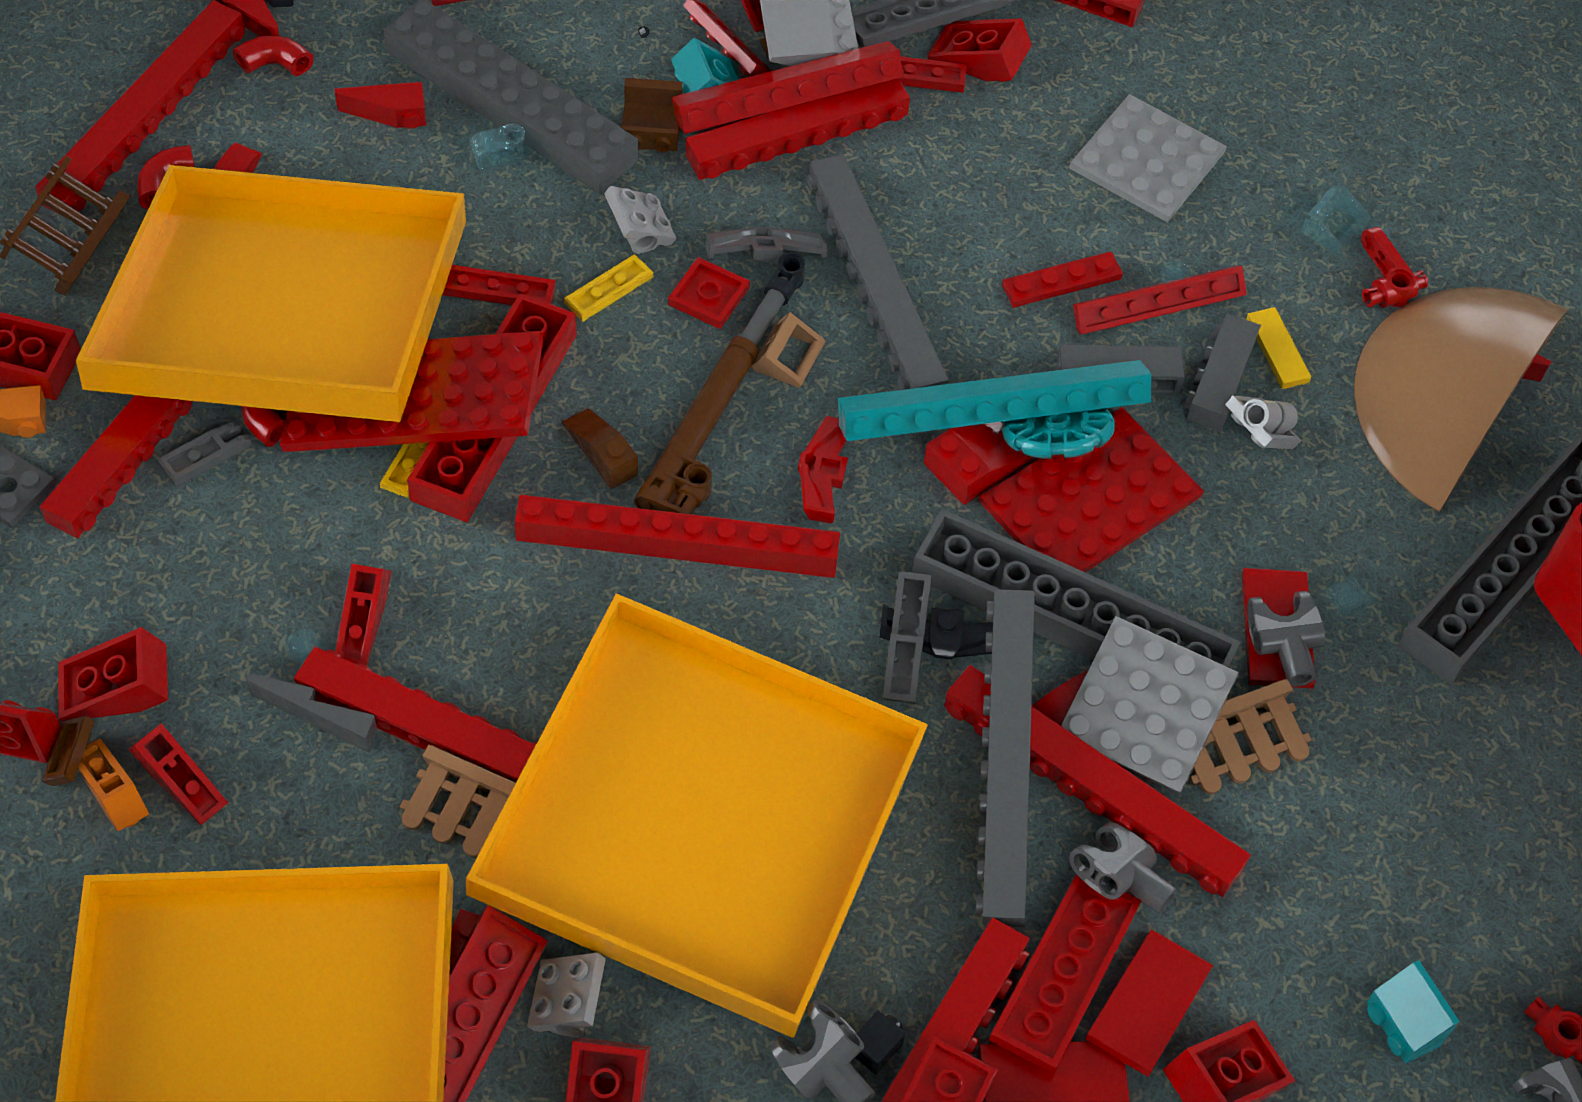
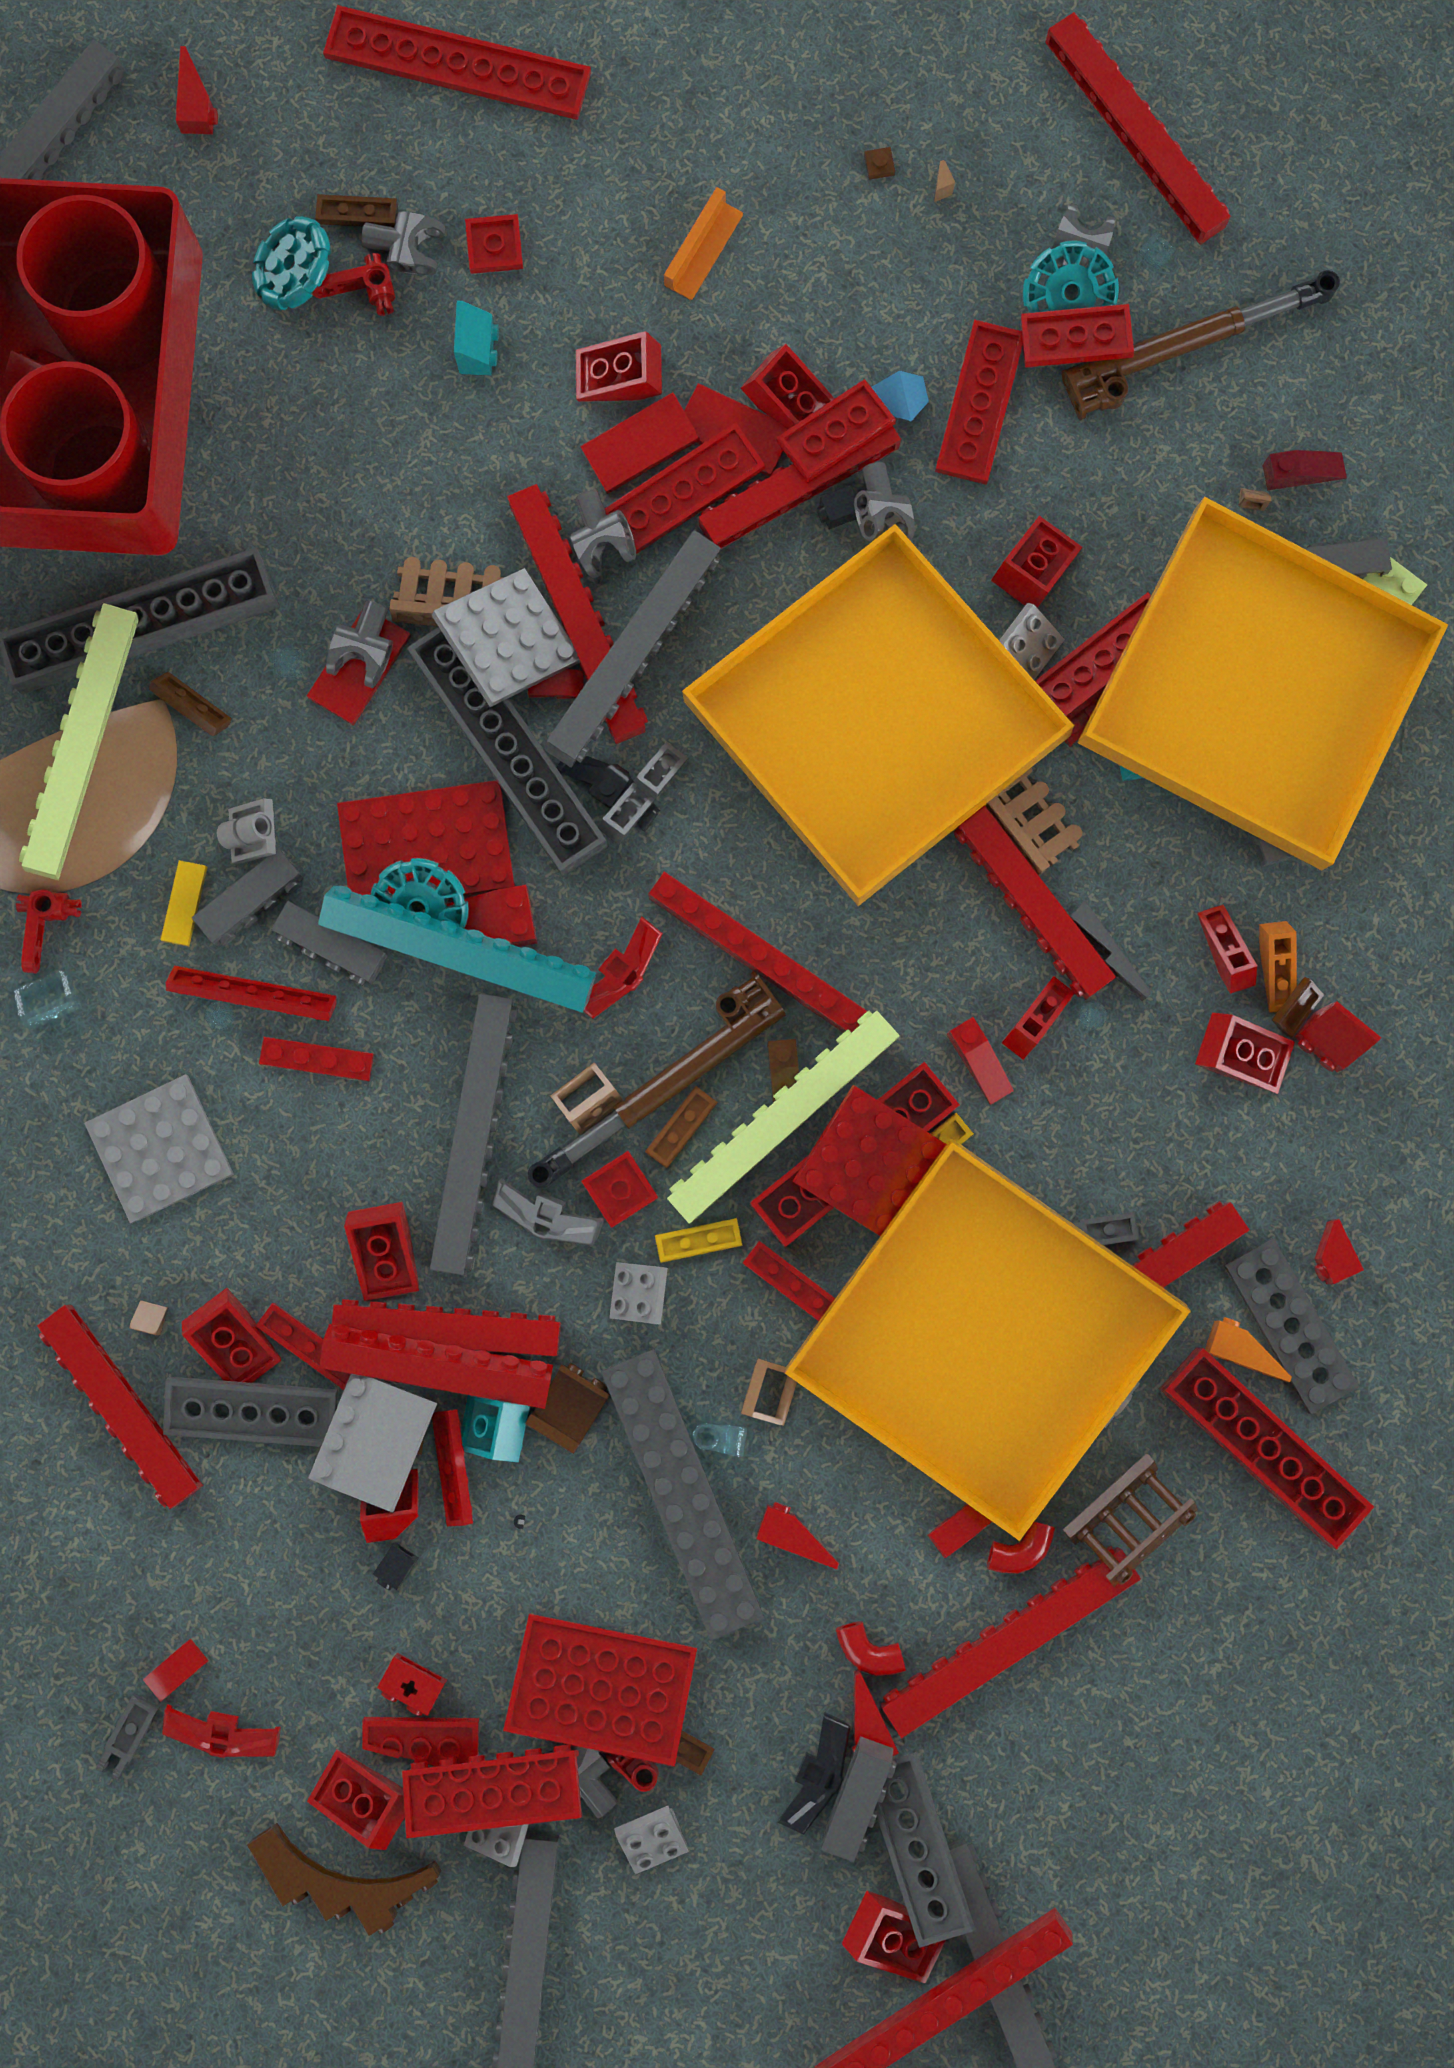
camera: 150 degrees left, 25 degrees up
(410, 549) = (980, 1060): none -> red slope
(476, 176) = (754, 1389): none -> medium nougat tile
(581, 403) = (783, 1117): none -> yellowish green brick
(681, 369) = (681, 1127): none -> dark orange tile
(898, 161) = (382, 1250): none -> red slope
(1060, 37) = (149, 1318): none -> medium nougat slope
(1410, 511) = (190, 703): none -> reddish brown plate
(1479, 401) = (79, 742): none -> yellowish green brick

